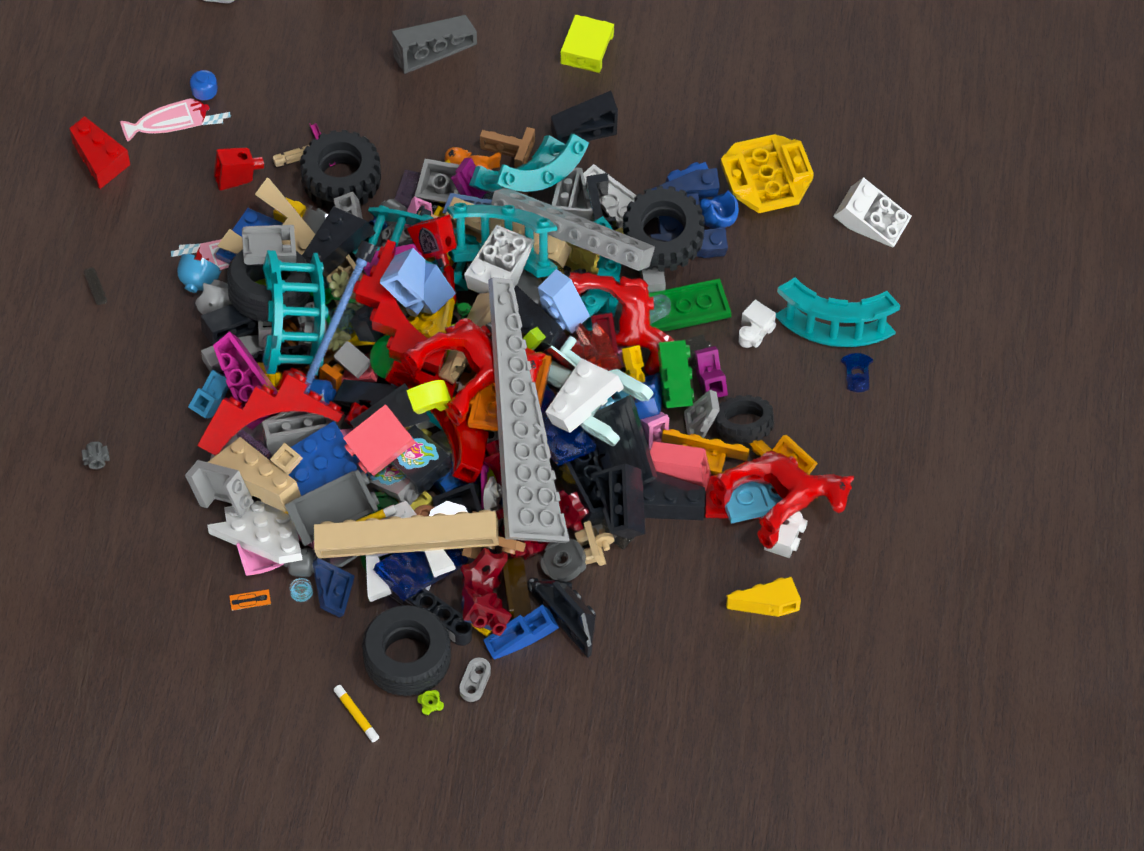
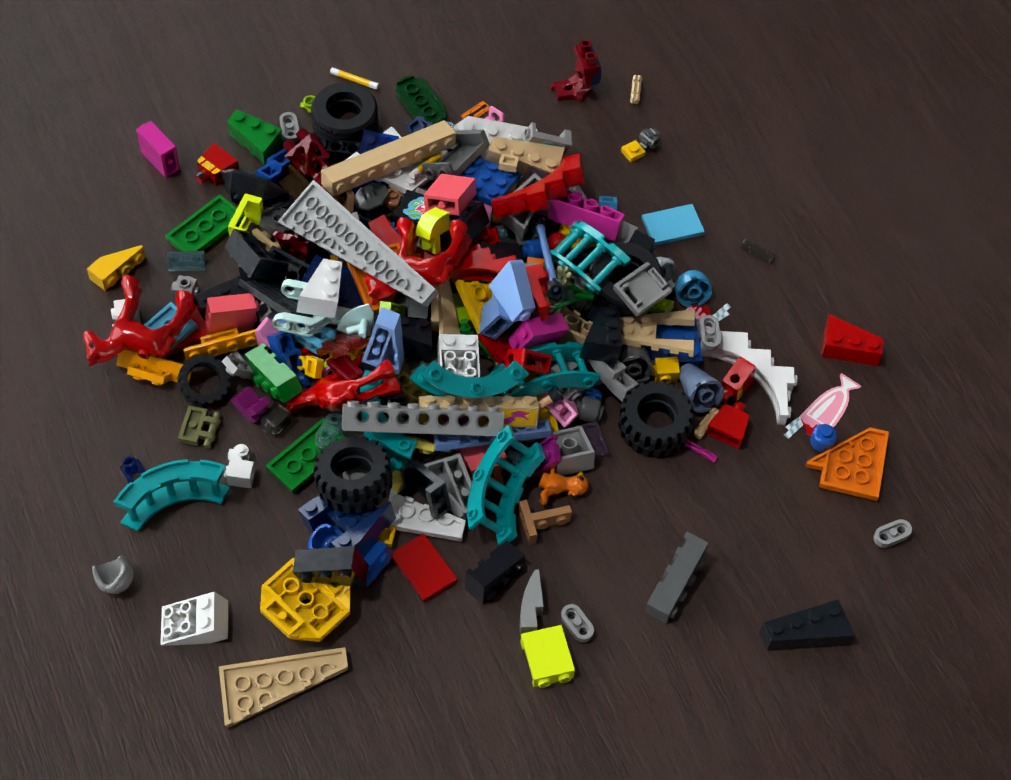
camera: 145 degrees right, 0 degrees up
(54, 529) = (636, 89): none -> tan axle
(102, 554) = (587, 75): none -> dark red hips
(122, 458) = (633, 151): none -> yellow plate
(154, 356) = (673, 224): none -> medium azure tile
(194, 51) = (854, 464): none -> orange wing
(206, 200) = (775, 380): none -> white arch
(225, 211) = (710, 334): none -> light grey plate
(273, 138) = (729, 425): none -> red torso
(279, 170) = (700, 388): none -> sand blue cone
(303, 642) = (420, 99): none -> dark green tile
(521, 682) = (255, 134): none -> green wedge
(542, 56) = (578, 624): none -> light grey plate
(571, 86) = (531, 604): none -> light grey slope
(584, 576) = (252, 208): none -> neon yellow panel
(589, 668) = (212, 163): none -> red torso
(641, 163) = (423, 567): none -> red tile
(643, 600) = (203, 226): none -> green plate
(645, 712) = (158, 149): none -> dark pink brick
(688, 566) = (186, 261): none -> clear light blue tile
(707, 529) = (185, 283): none -> light grey brick
(735, 161) = (331, 566): none -> black wedge
(779, 386) = (193, 427): none -> olive plate
(830, 137) = (264, 683): none -> tan wing
(926, 283) = (113, 576): none -> light grey piece

